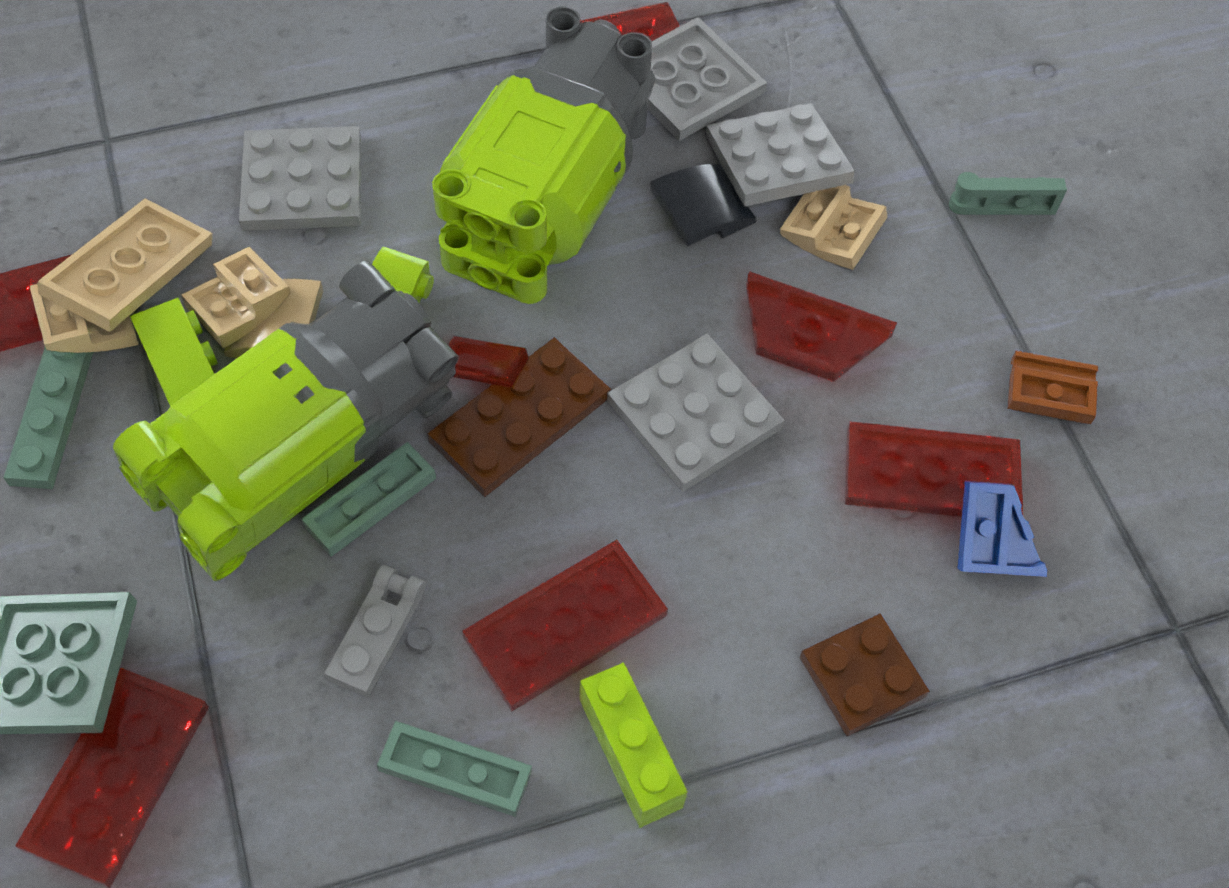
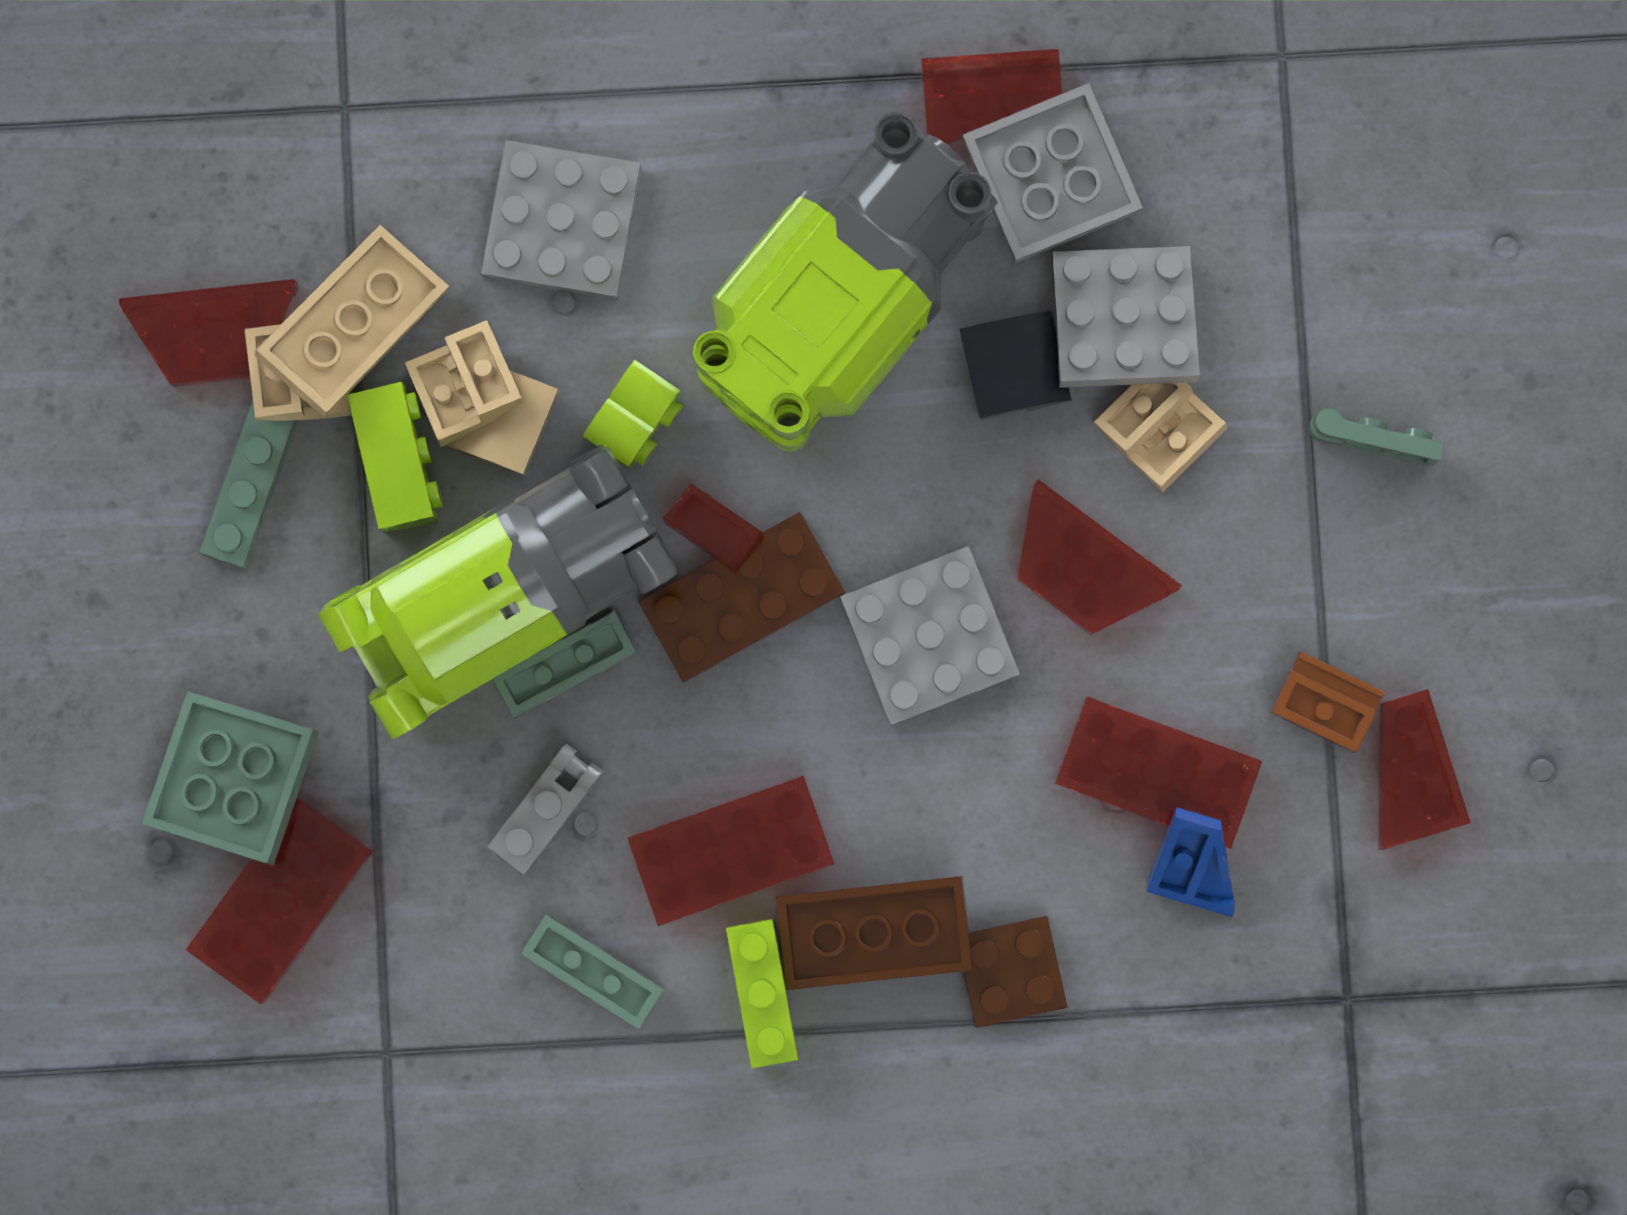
camera: 20 degrees right, 25 degrees up
(726, 661) = (874, 933): none -> reddish brown plate
(1151, 426) = (1415, 774): none -> clear red wing

